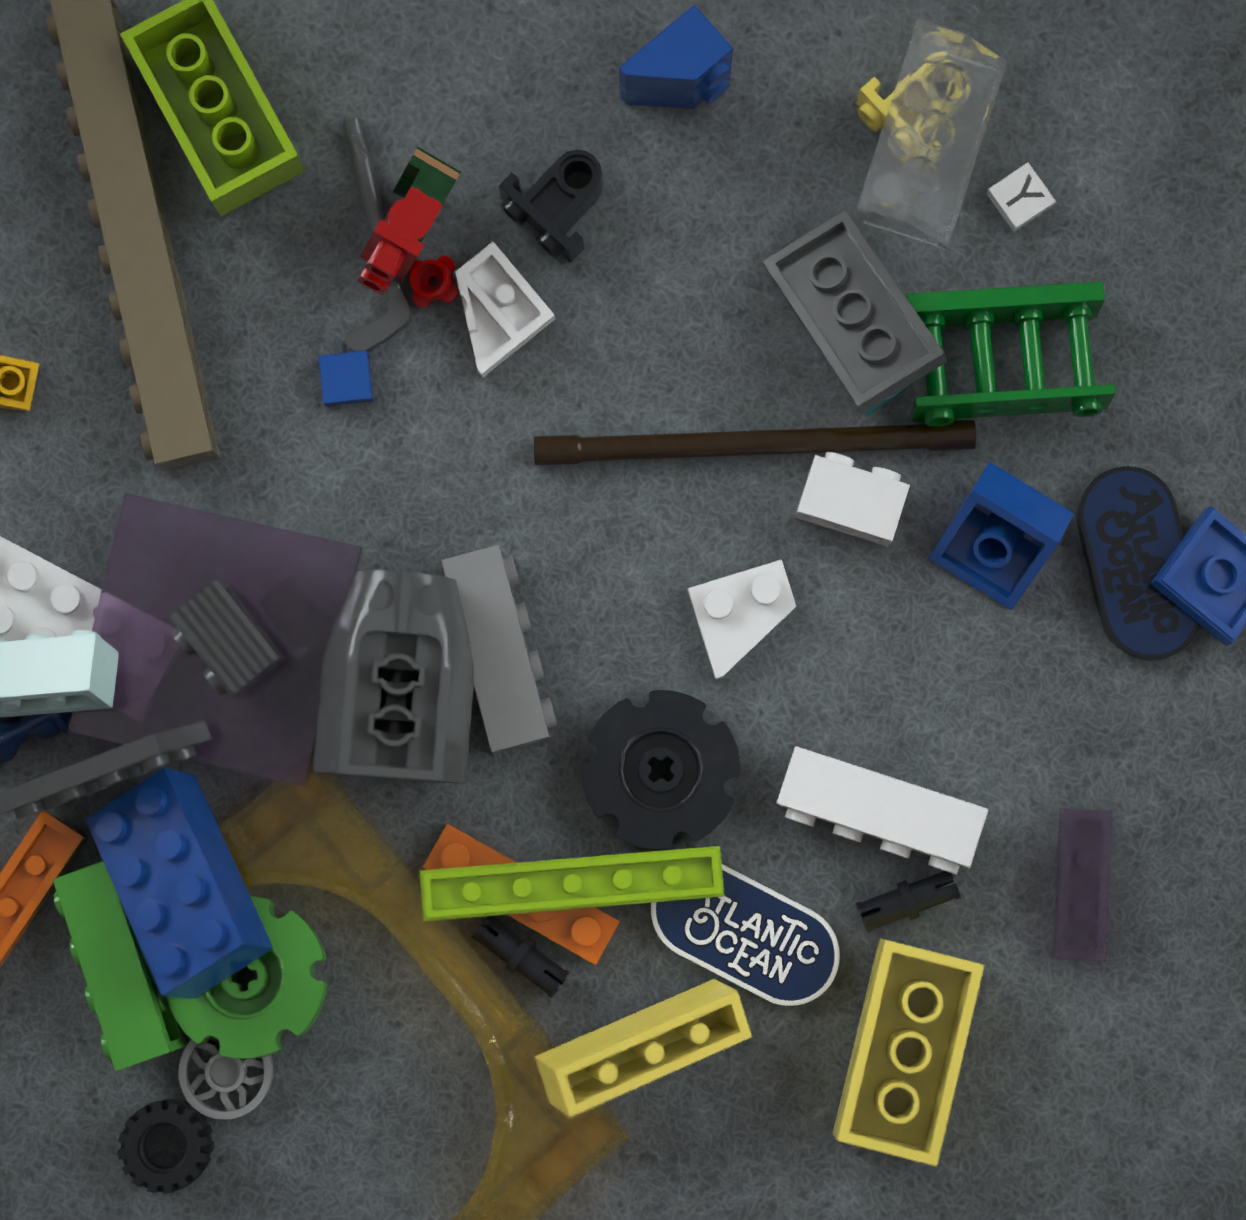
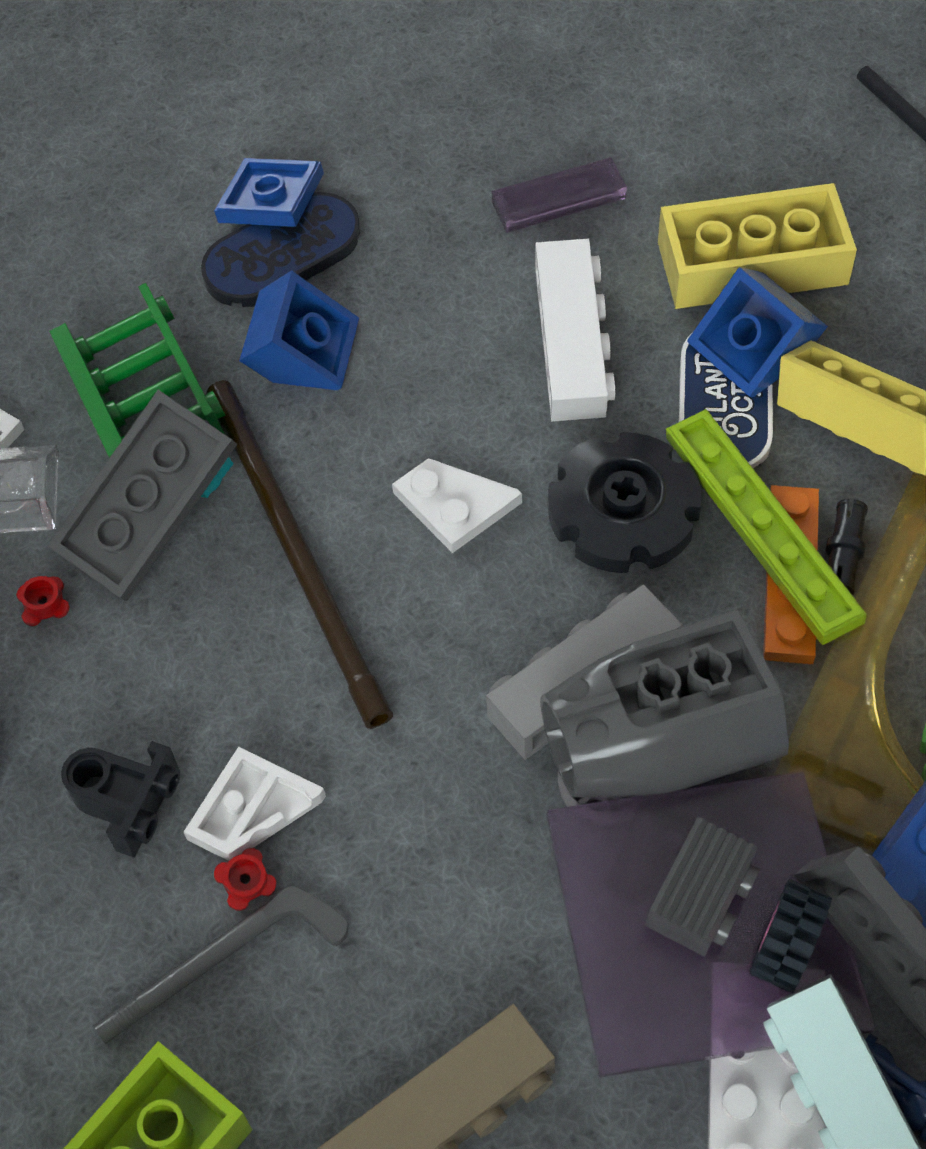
camera: 115 degrees left, 25 degrees down
(147, 685) = (791, 936): none -> black wheel
(345, 378) = (379, 923): blue tile -> none
(399, 236) = (192, 903): red hips -> none
(793, 992) = (752, 329): none -> blue slope
(804, 181) = (37, 589): none -> red plate
(853, 499) = (315, 449): white brick -> none
(908, 900) = (636, 297): black pin -> none

